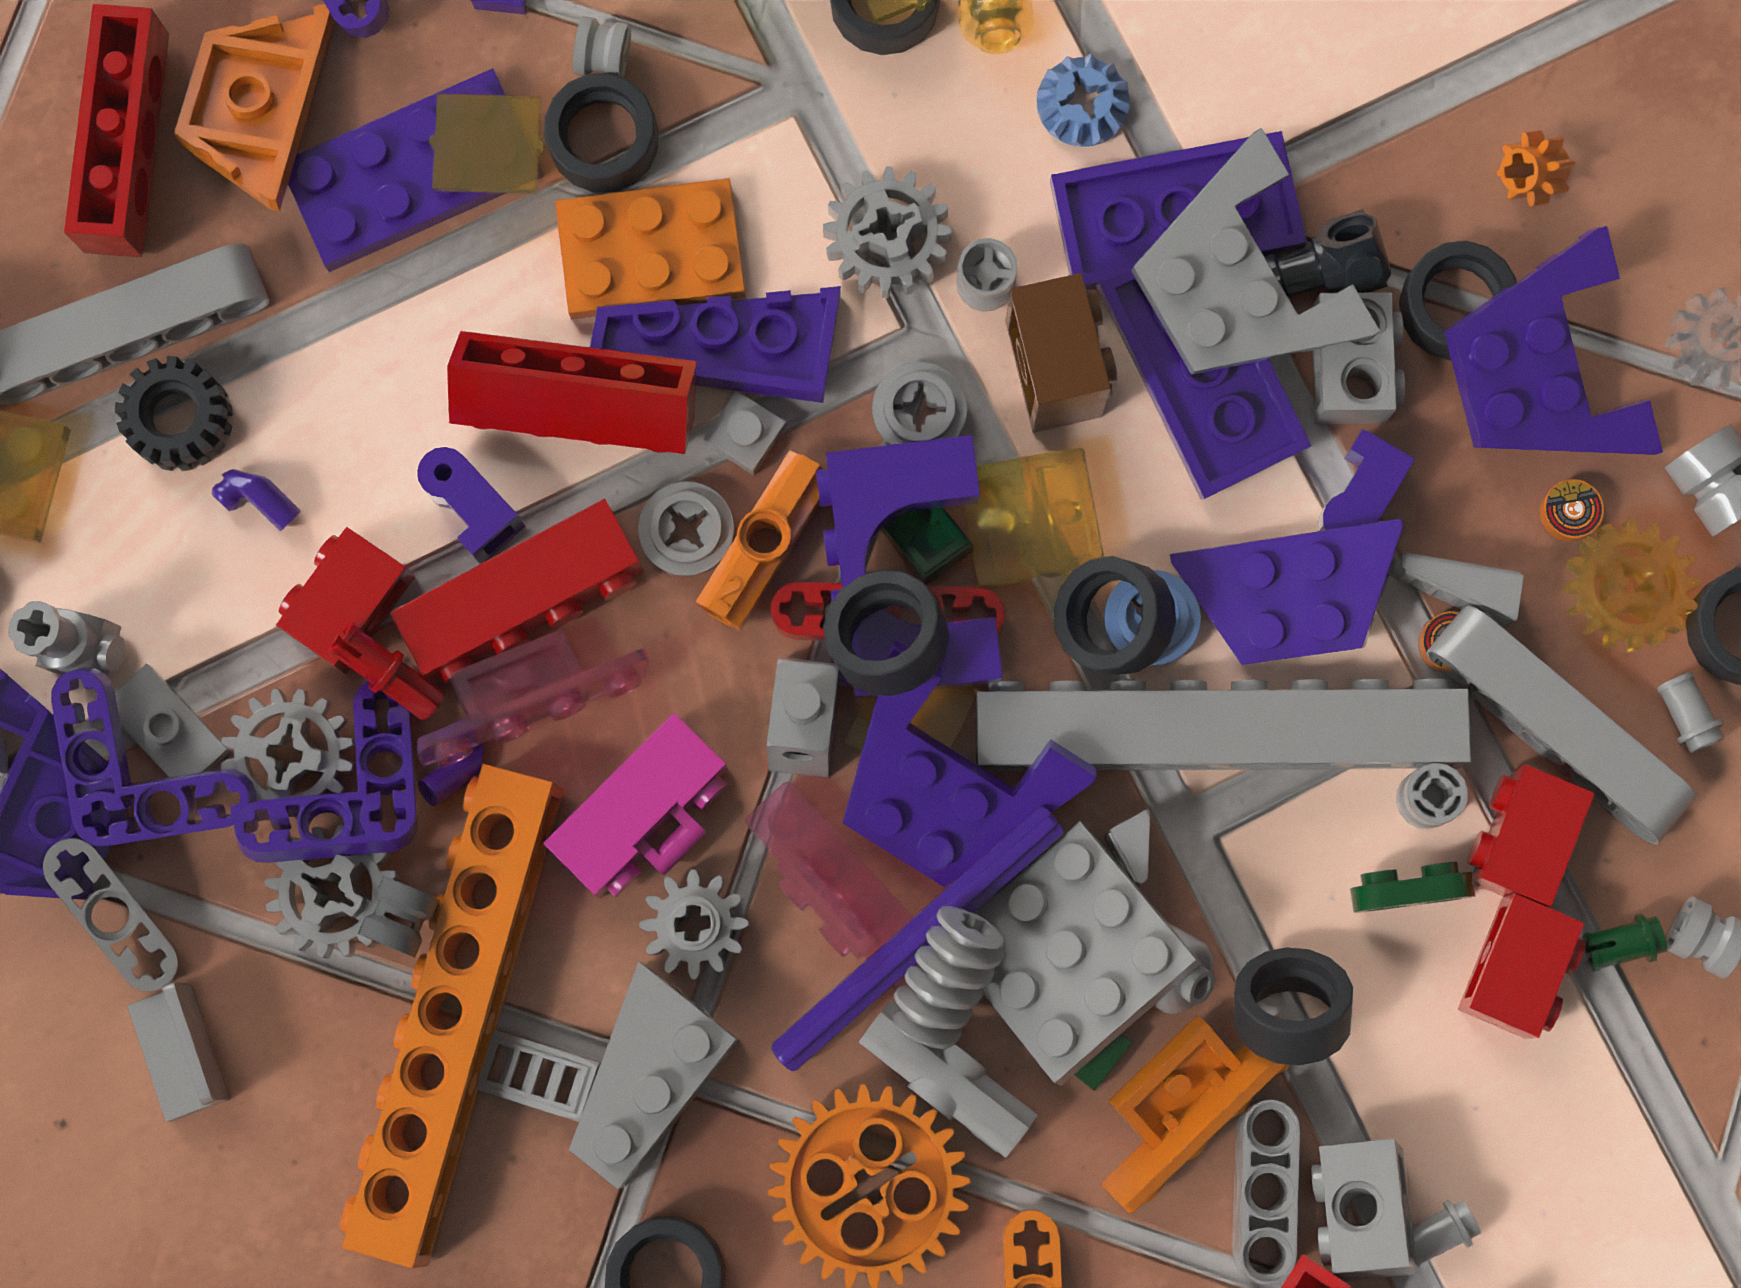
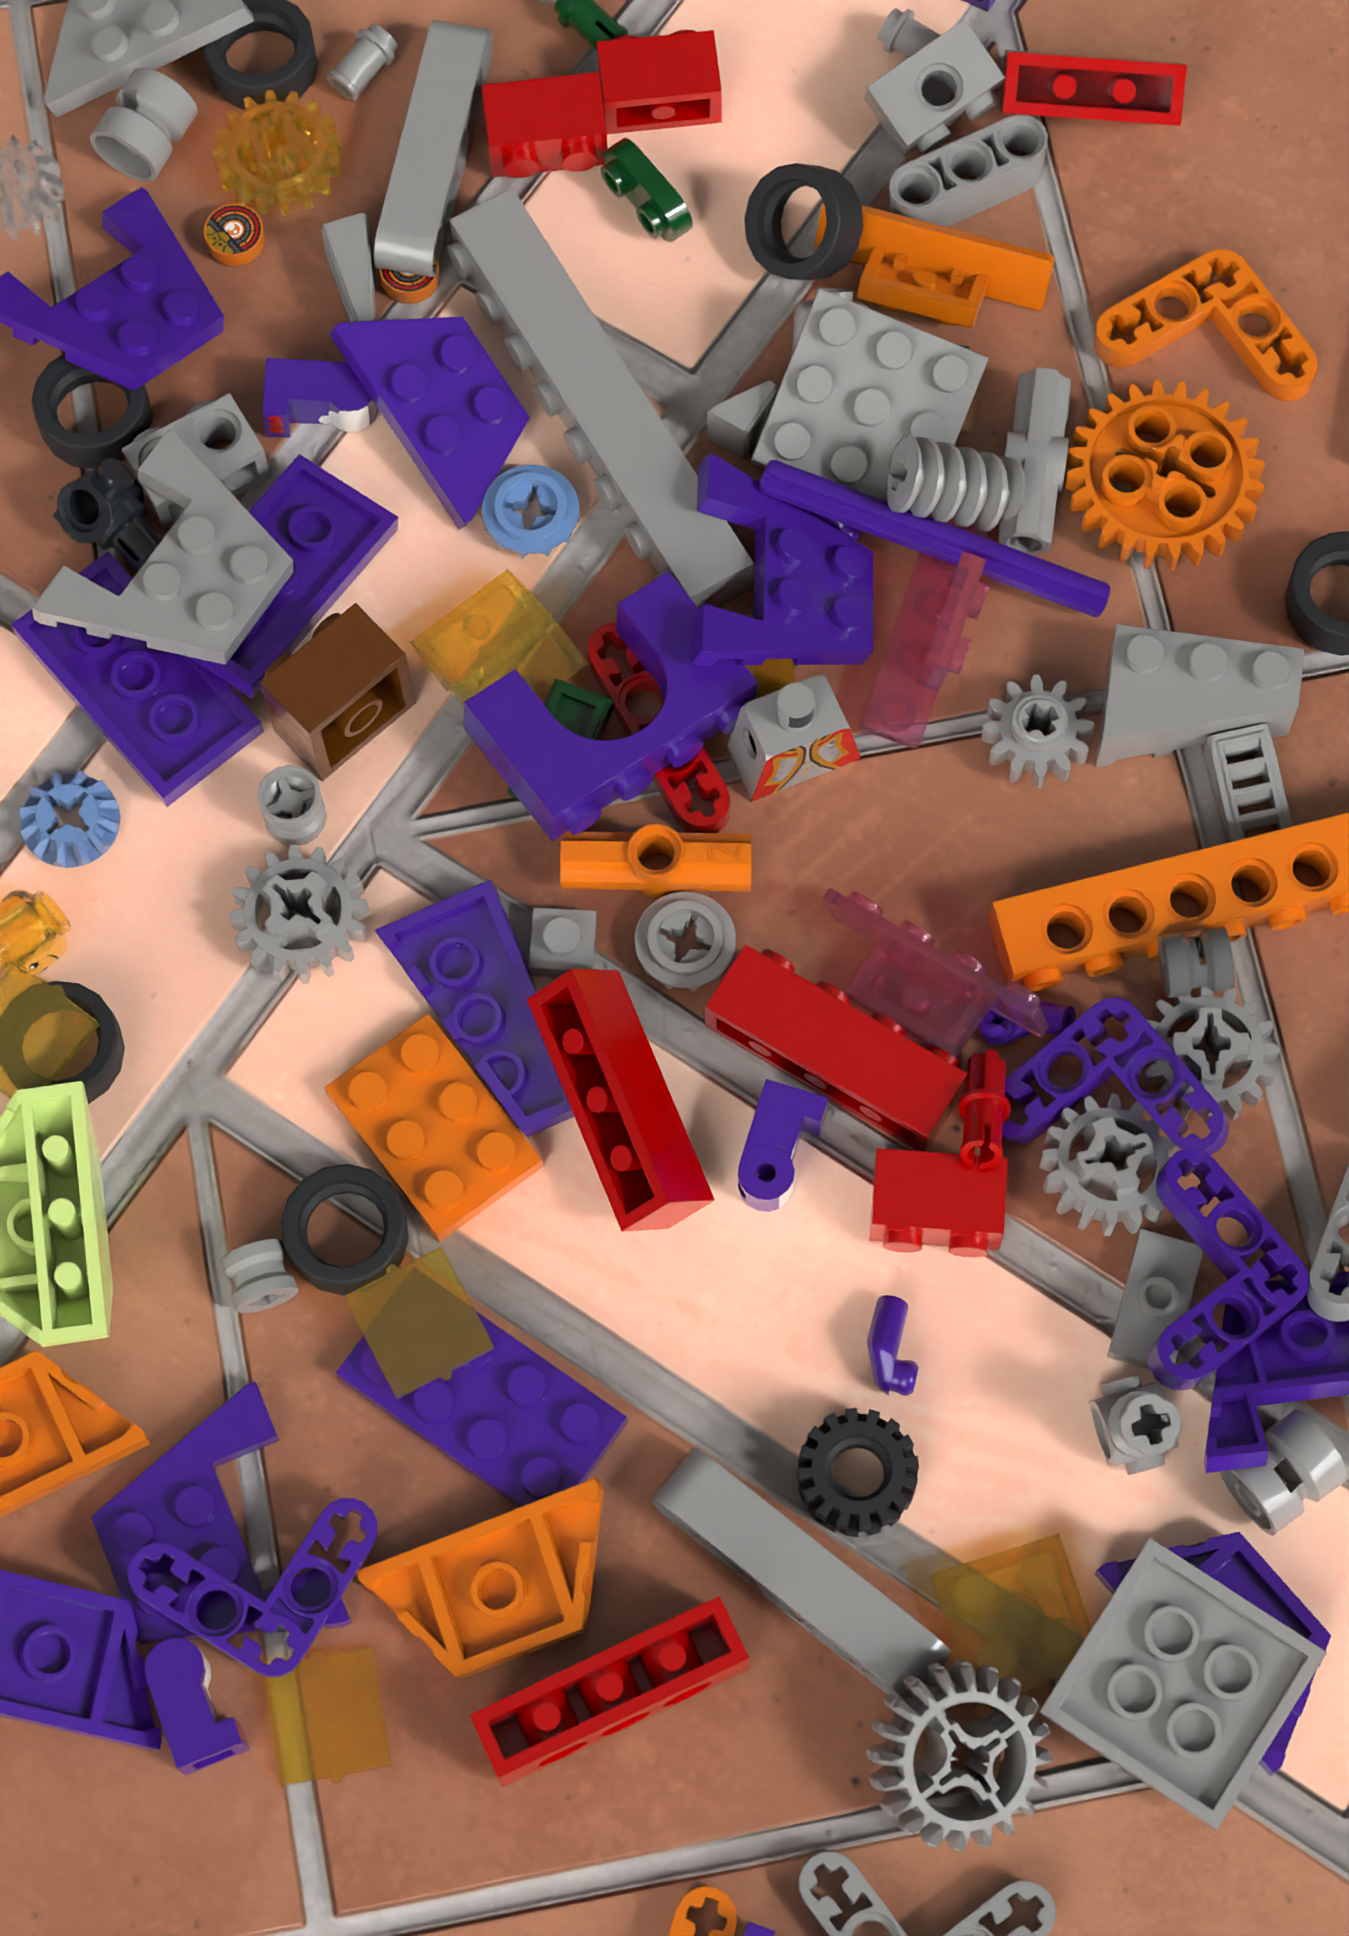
camera: 120 degrees left, 10 degrees down
(651, 787) = (964, 839): dark pink piece -> none
(863, 598) = (647, 644): black tyre -> none
(899, 390) = (463, 777): light grey gear -> none
(1073, 606) = (597, 521): black tyre -> none
(1420, 800) = (561, 227): light grey wheel -> none

